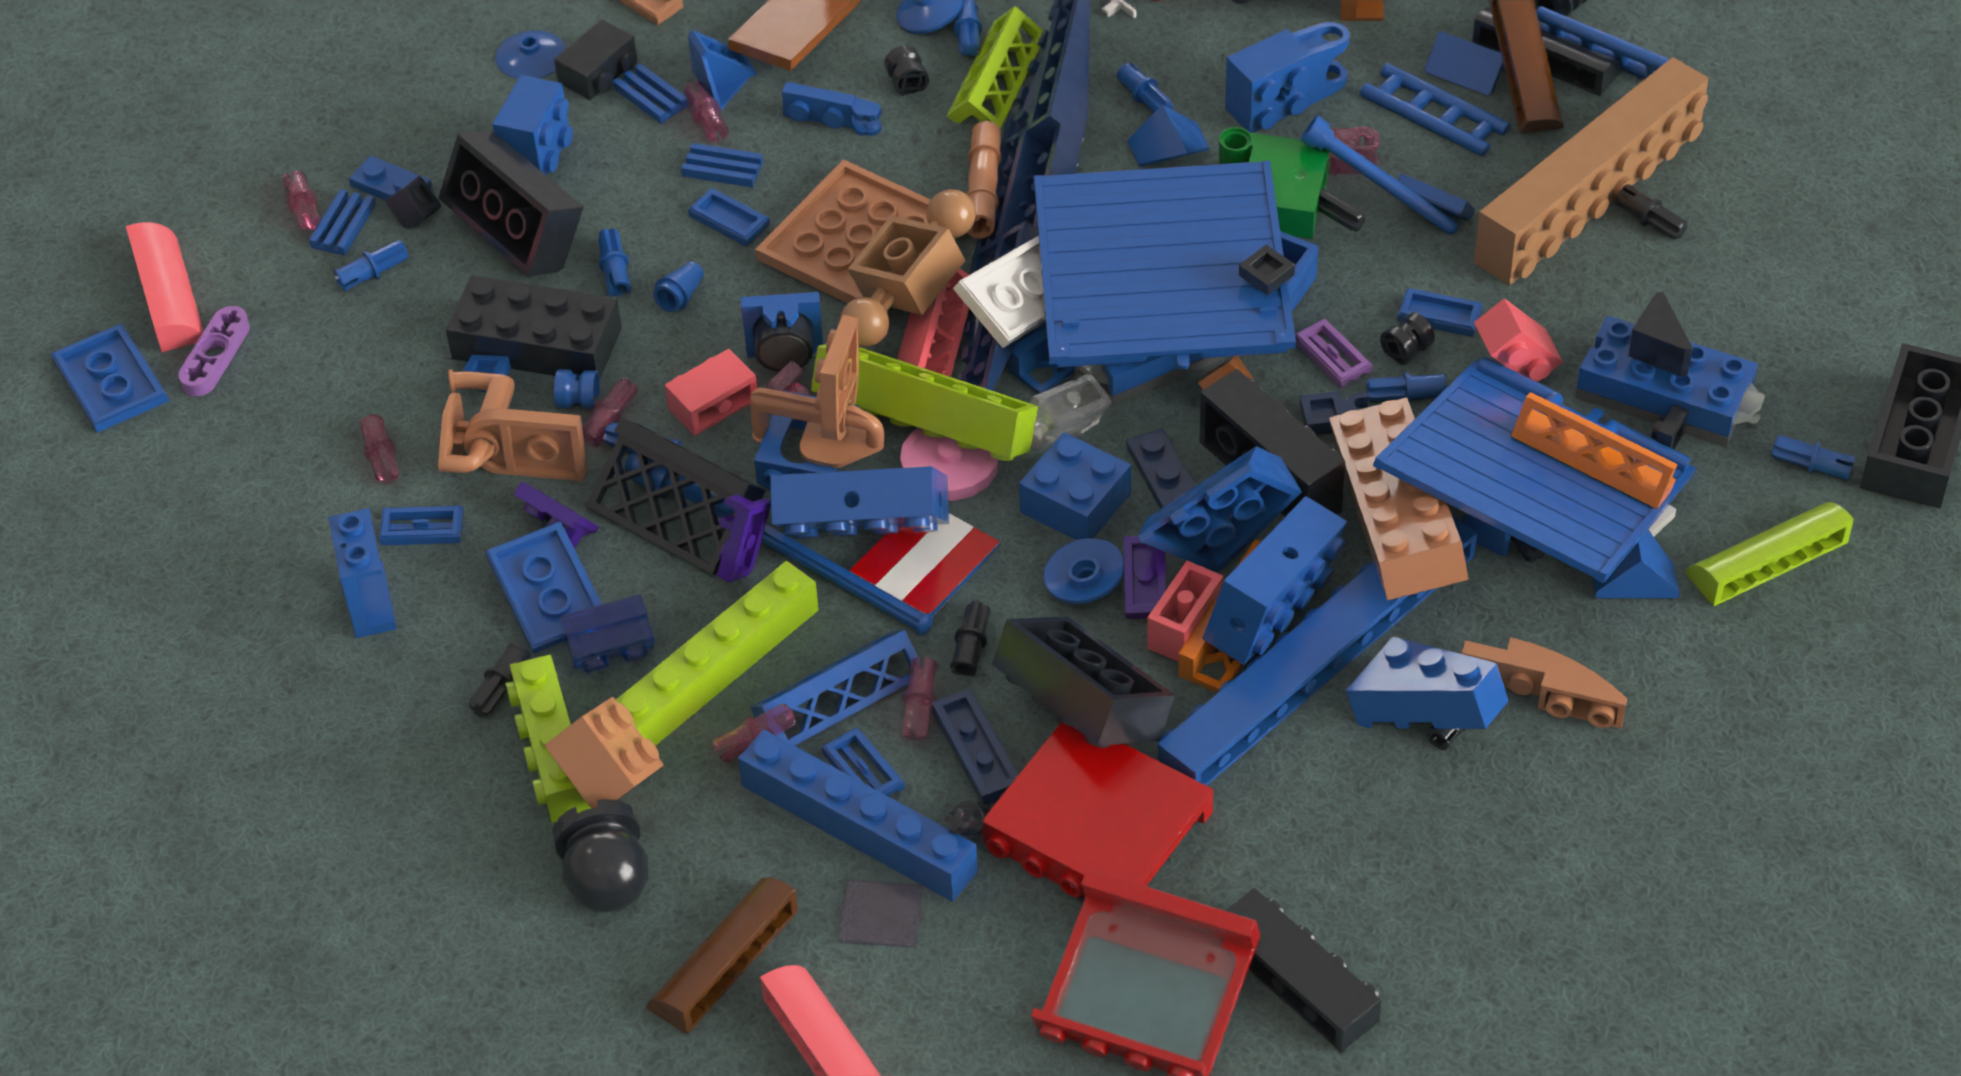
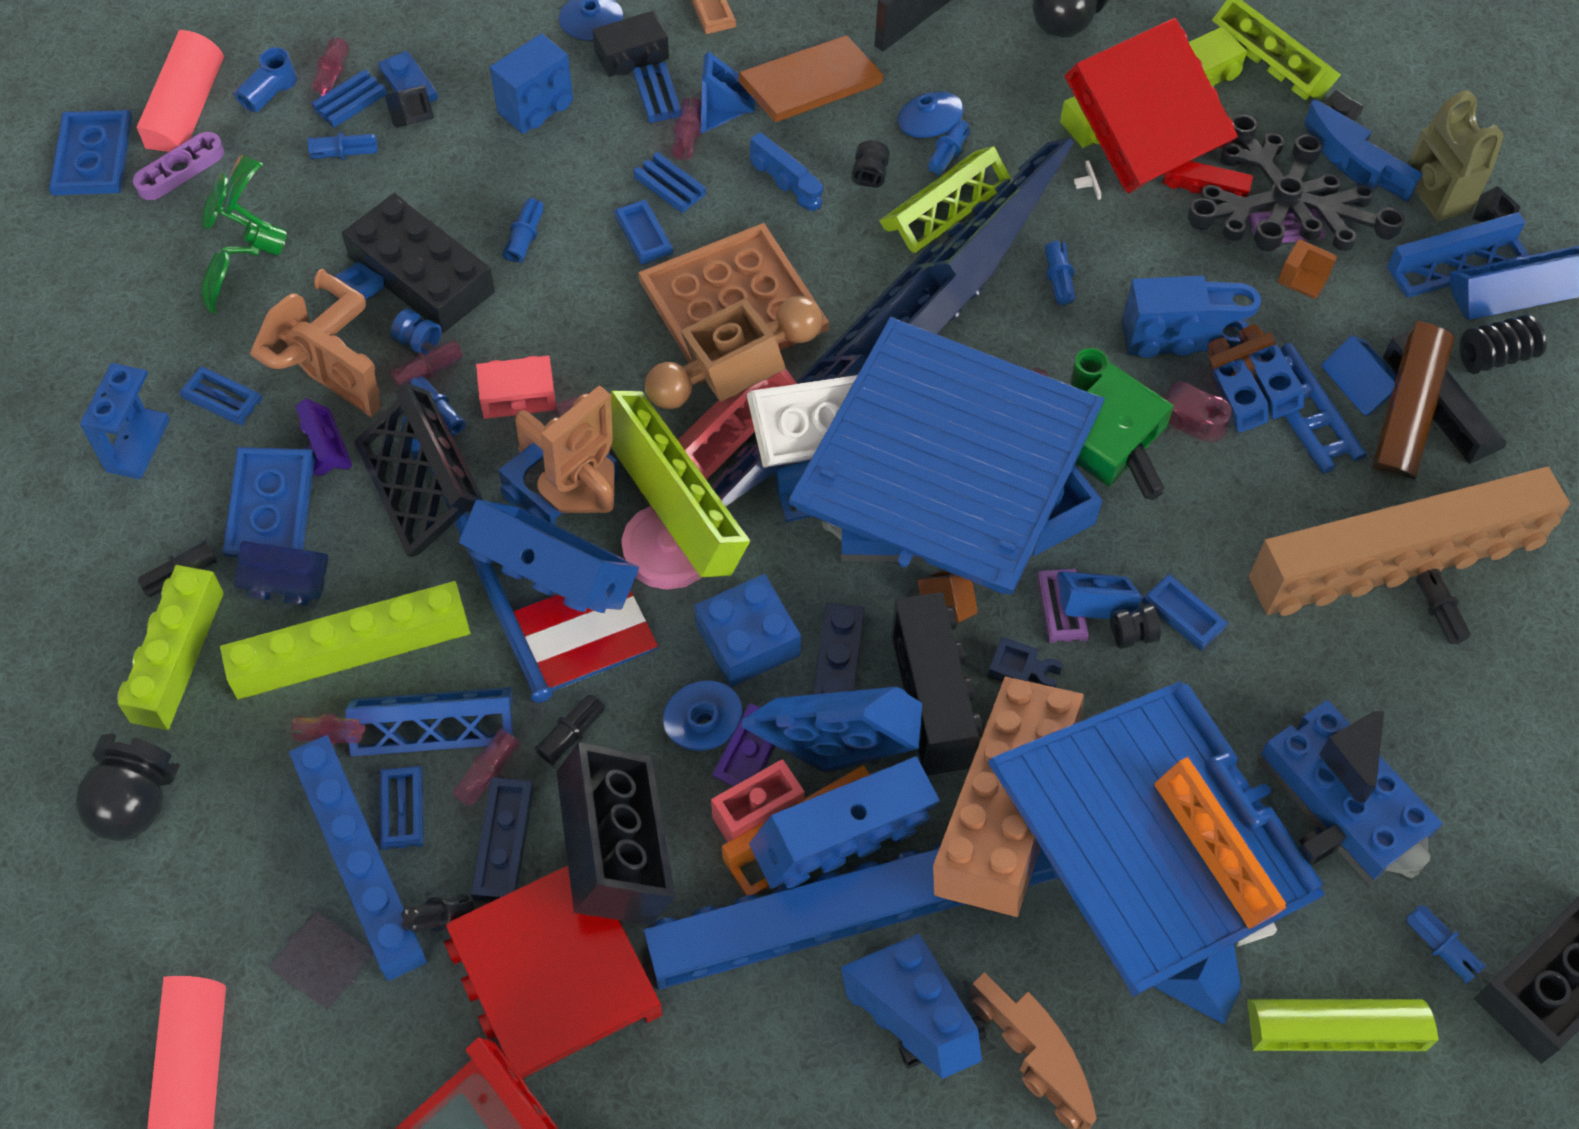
camera: 25 degrees right, 10 degrees up
(247, 238) = (271, 77): none -> blue piece
(334, 317) = (257, 233): none -> green plant
(379, 448) = (235, 311): clear pink axle -> none
(510, 202) = (469, 142): black brick -> none
(604, 753) = (180, 693): nougat brick -> none
(678, 287) = (557, 277): blue cone -> none
(725, 954) = (165, 931): reddish brown brick -> none
(746, 528) = (439, 539): dark purple plate -> none
(782, 328) = (602, 358): piece -> none
(983, 176) = (865, 295): nougat piece -> none
(1068, 409) = (783, 552): clear brick -> none
(1166, 137) = (1050, 327): blue slope -> none
(1266, 270) = (1027, 508): black plate -> none
(1321, 136) = (1164, 396): blue piece -> none
(1357, 329) = (1096, 594): none -> blue slope
(1378, 99) = (1254, 378): none -> blue hips
(1407, 386) = (1104, 674): blue axle -> none
(1439, 198) = (1249, 496): blue tile -> none
(1518, 341) = (1227, 685): coral brick -> none
(1632, 57) = (1516, 439): blue bar -> none

